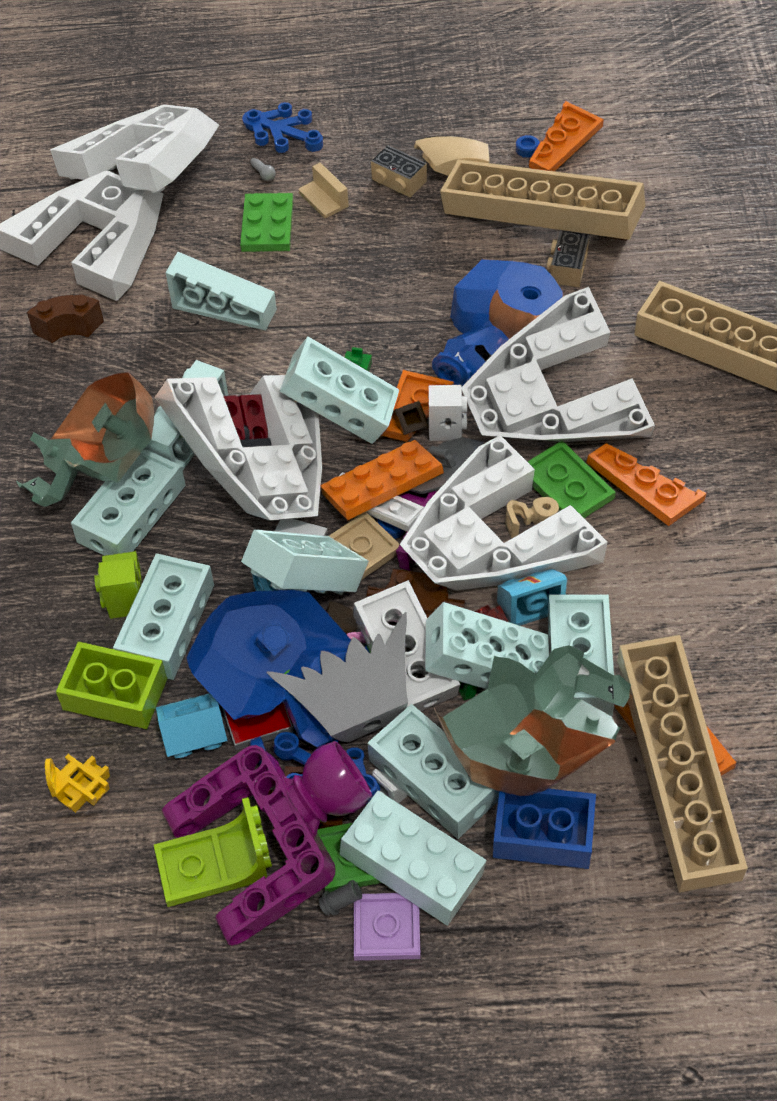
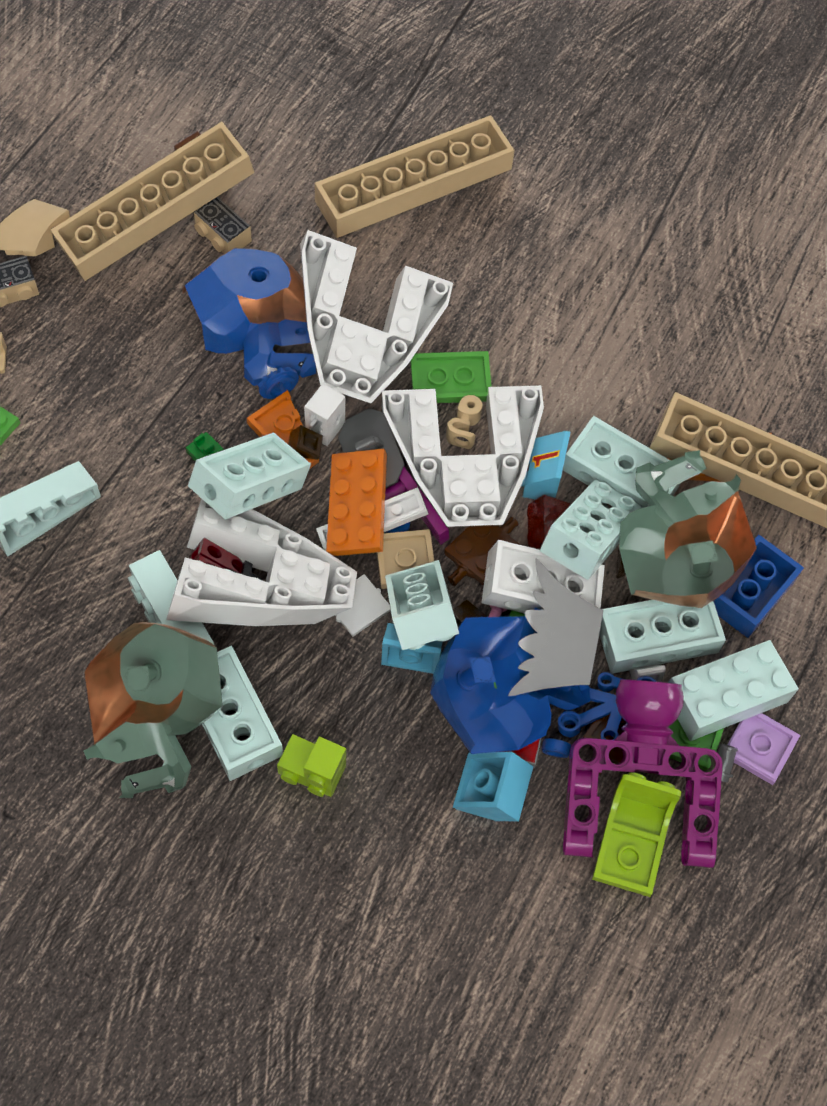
camera: 65 degrees left, 10 degrees up
(79, 787) = (493, 910): yellow piece -> none
(112, 685) = (418, 827): lime brick -> none
(166, 611) = (379, 729): light aqua brick -> none
(526, 145) = (61, 174): blue tile -> none
(568, 134) = (78, 139): orange wing -> none
(645, 485) = (502, 326): orange wing -> none

